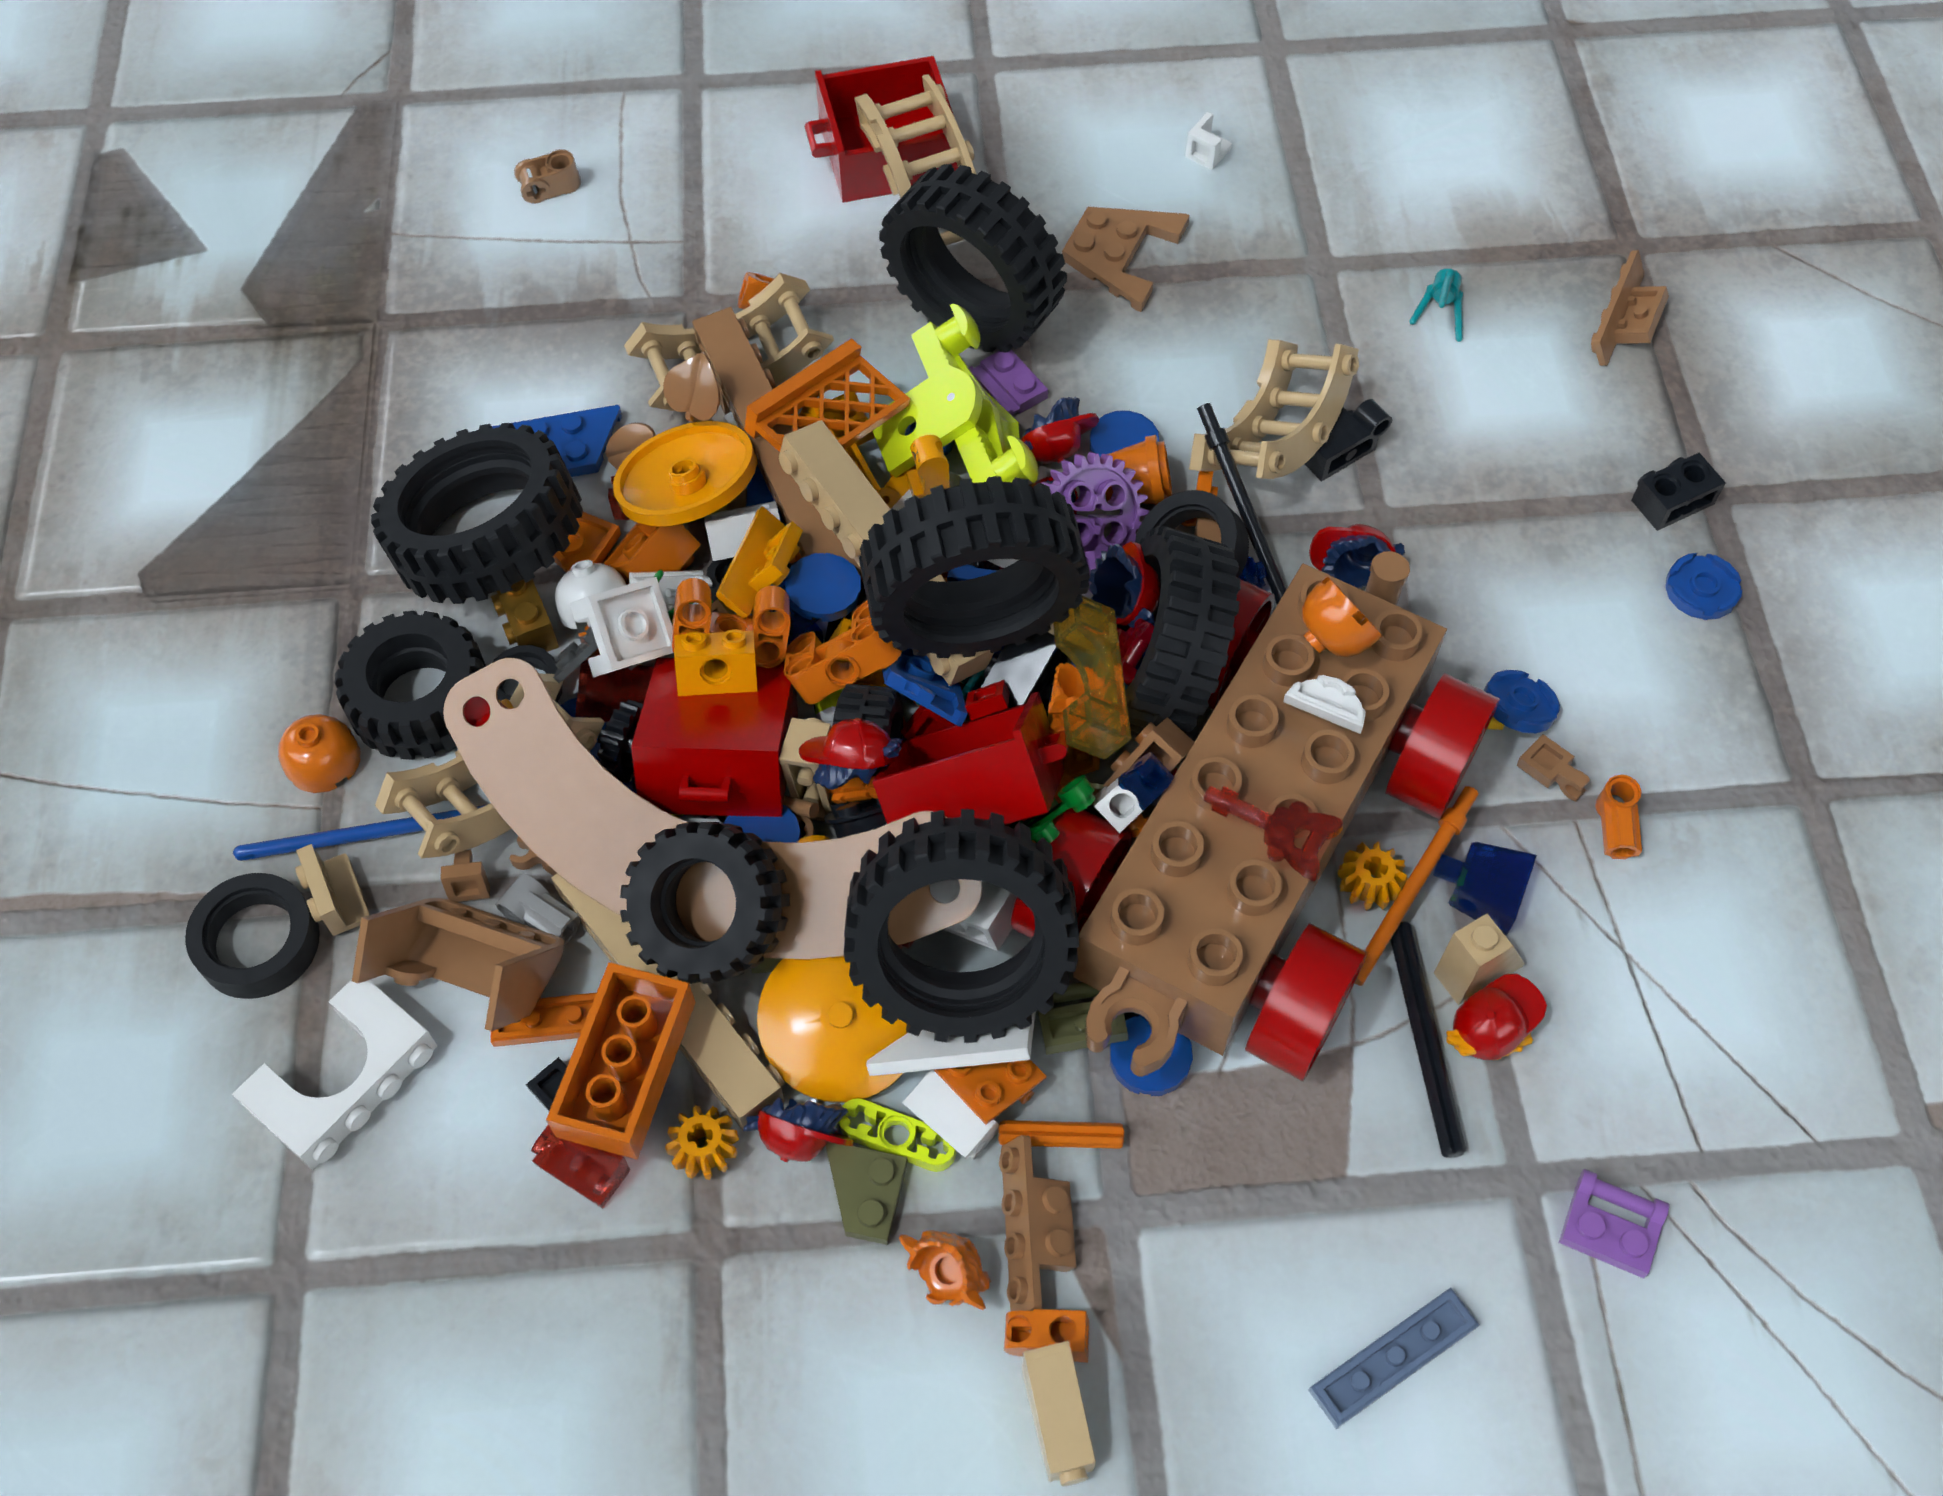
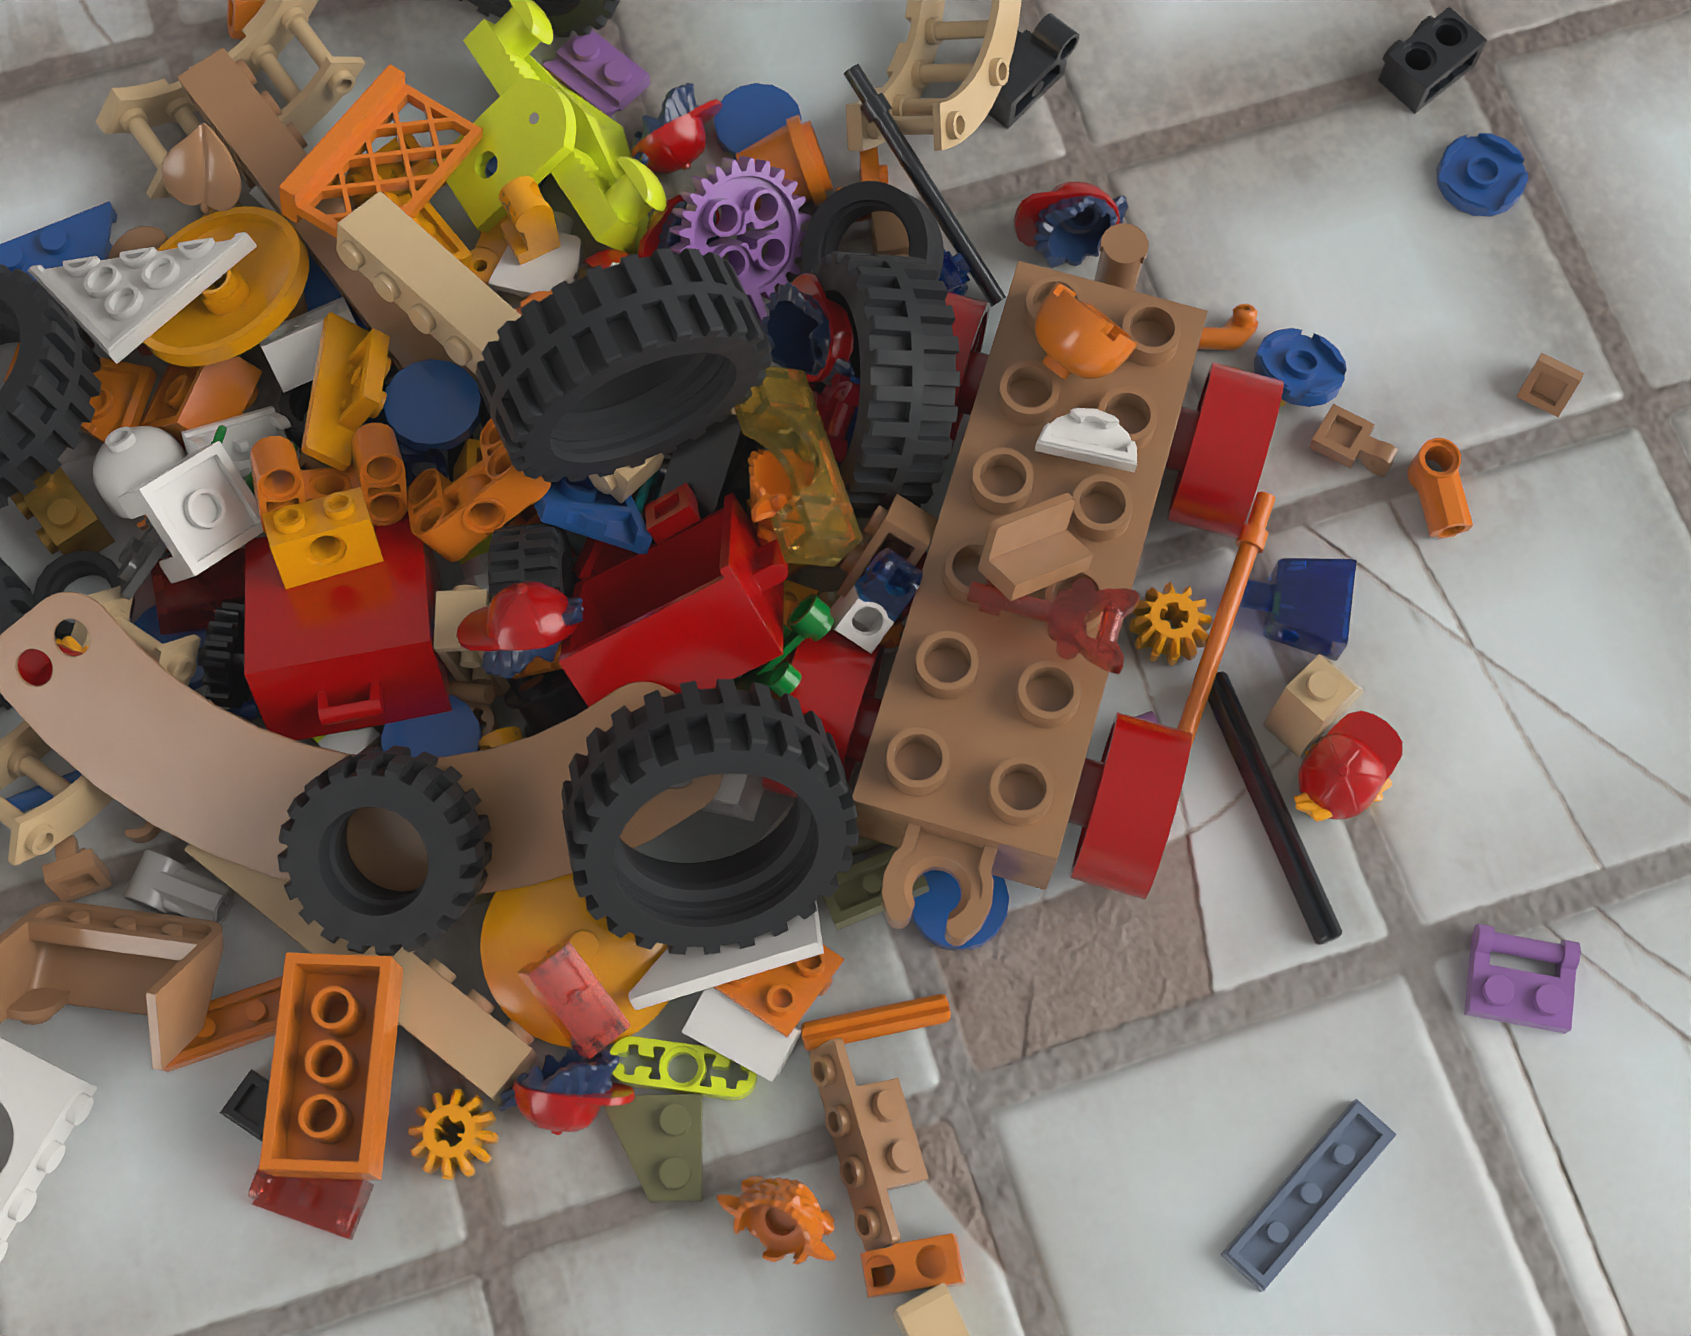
camera: 15 degrees left, 10 degrees up
(620, 468) = (141, 290): none -> white tile
(823, 1054) = (574, 1000): none -> clear red hinge
(1265, 770) = (1033, 548): none -> medium nougat panel
(1471, 666) = (1233, 333): none -> orange arm
(1729, 755) = (1550, 384): none -> medium nougat tile

